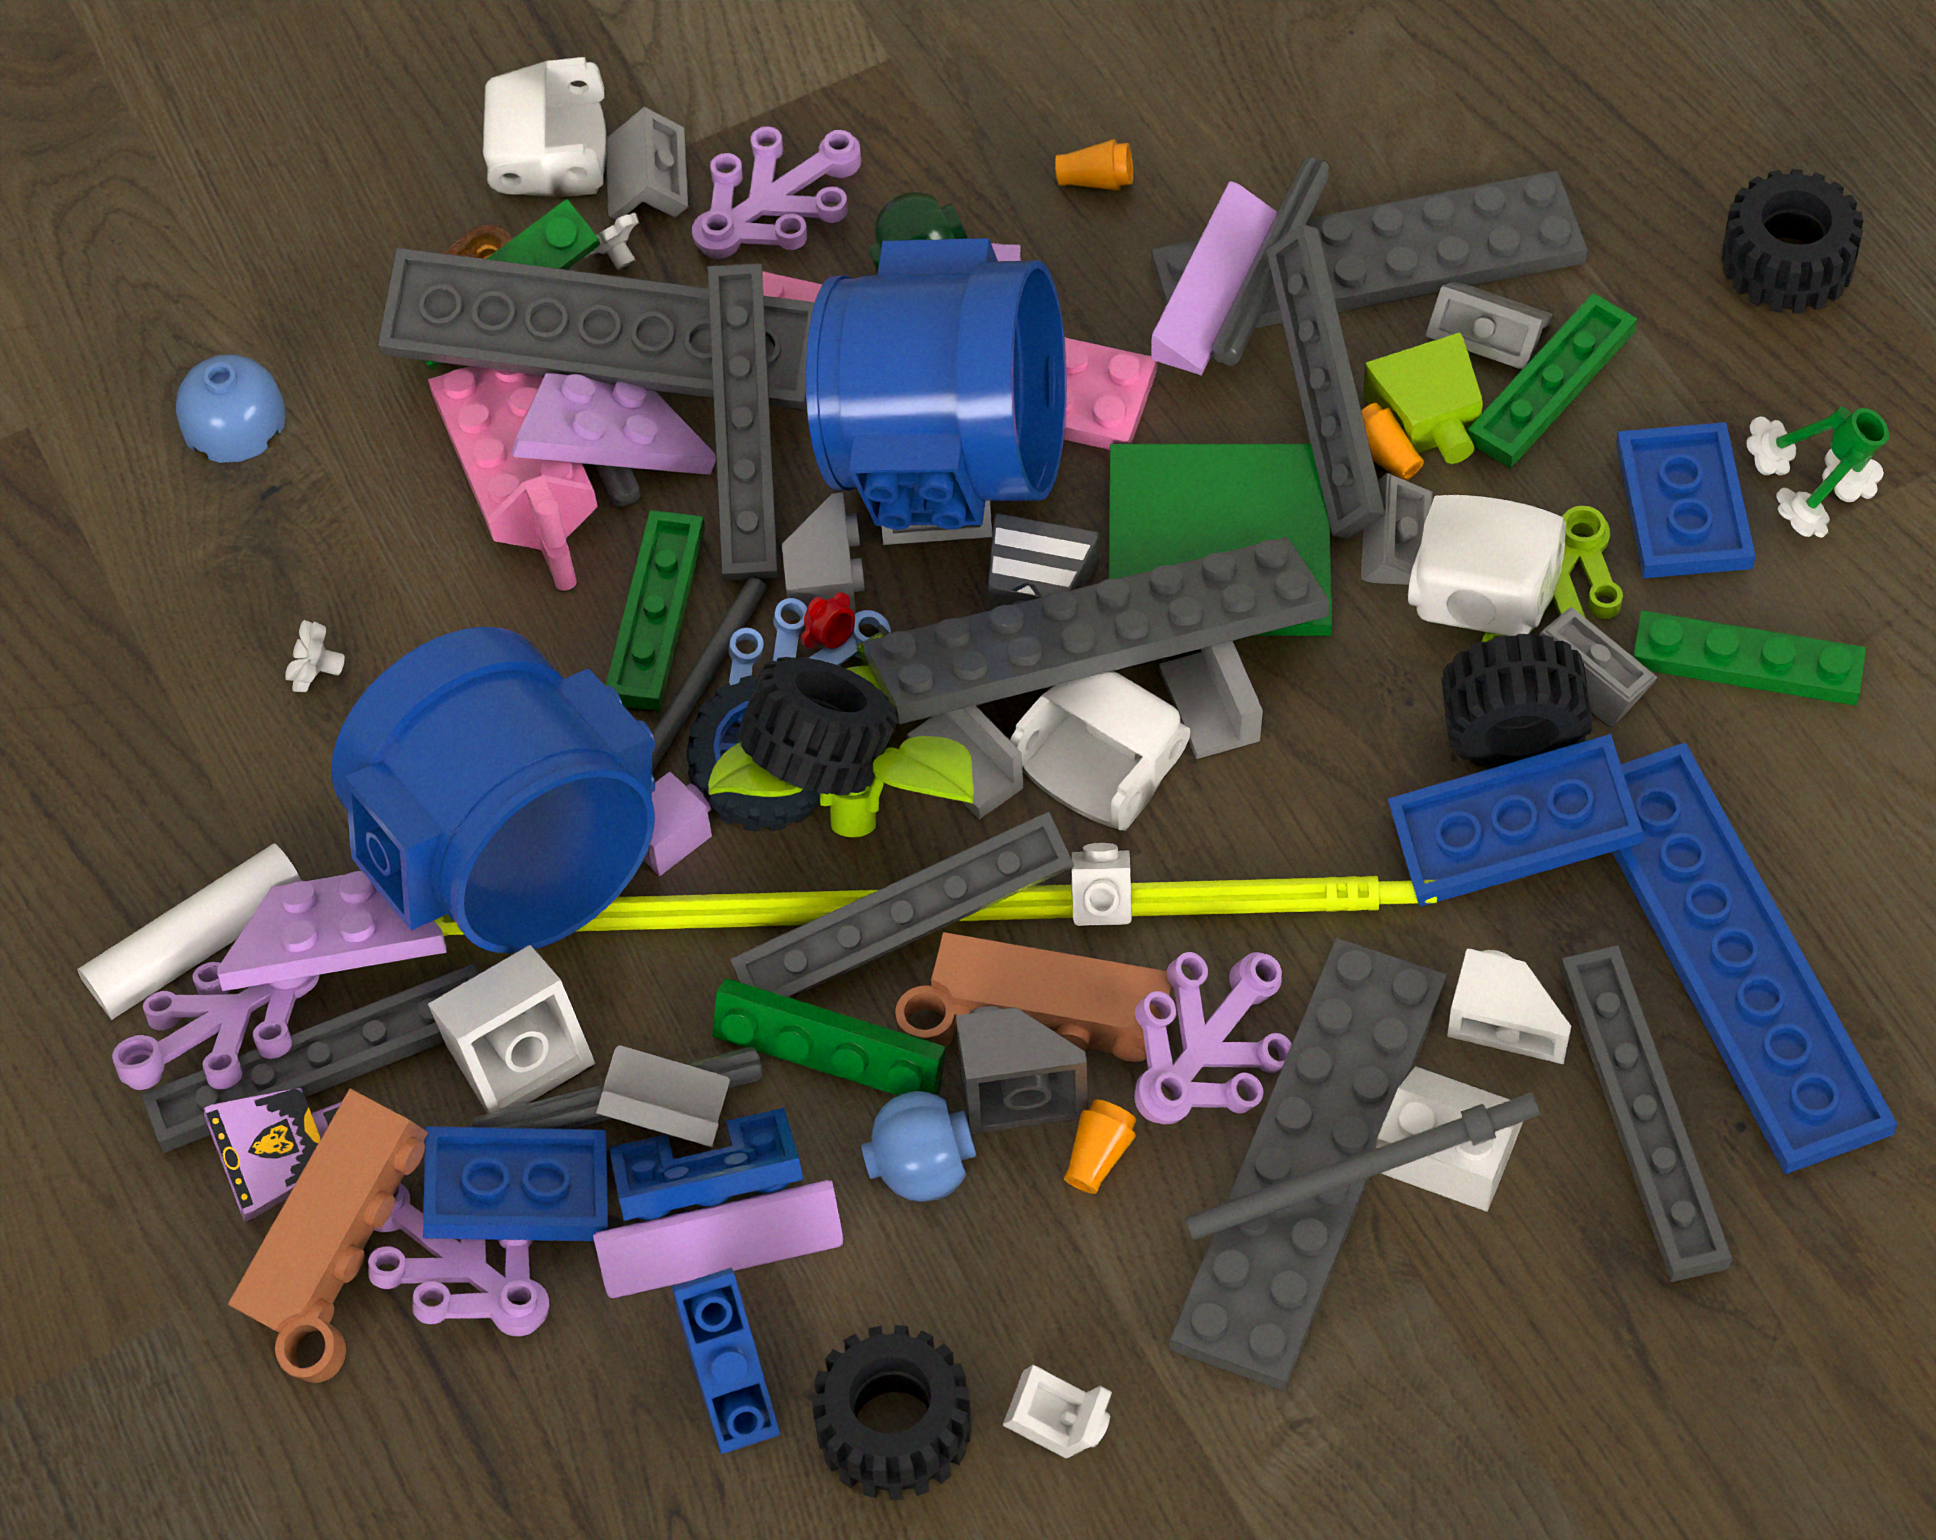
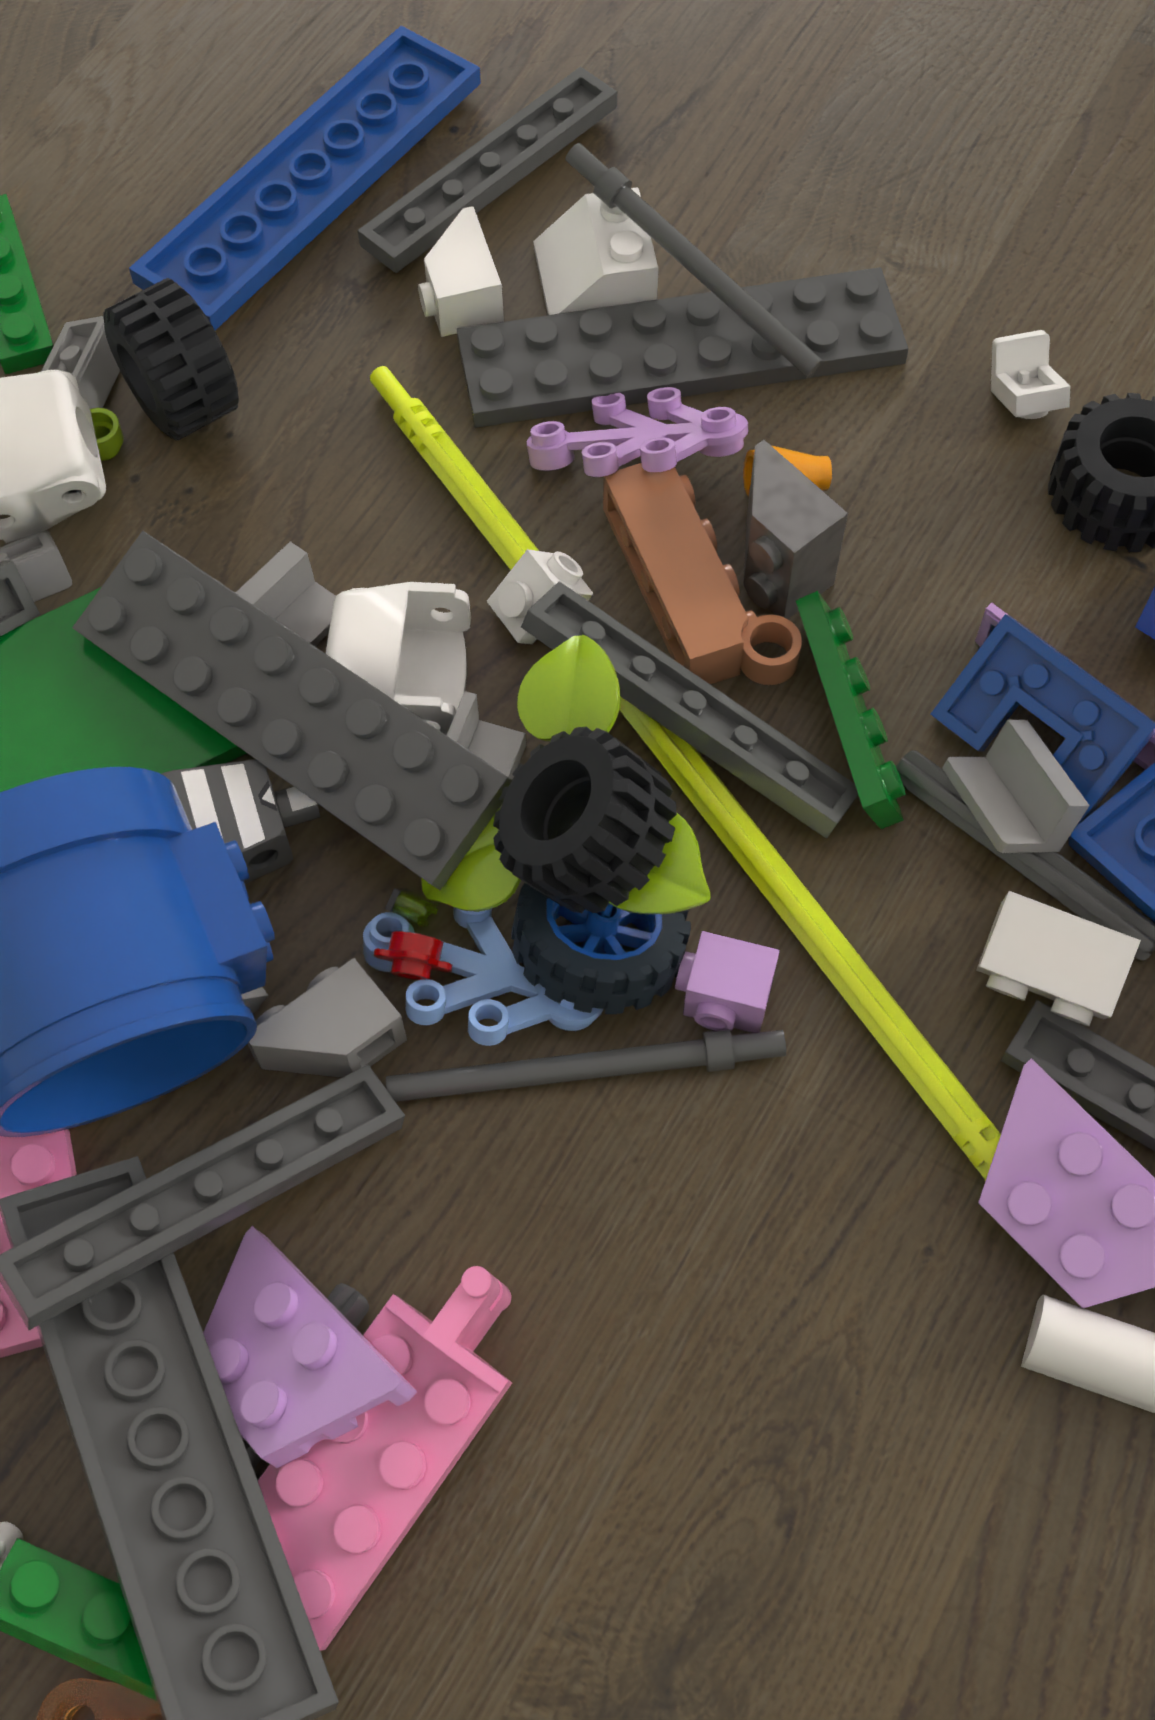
camera: 125 degrees left, 5 degrees up
(312, 657) = (783, 1496): white plant -> none
(495, 790) = (877, 1060): blue cylinder -> none
(655, 608) = (484, 1162): green plate -> none
(919, 1146) = (888, 588): medium blue plant -> none
(1516, 820) = (286, 335): blue plate -> none

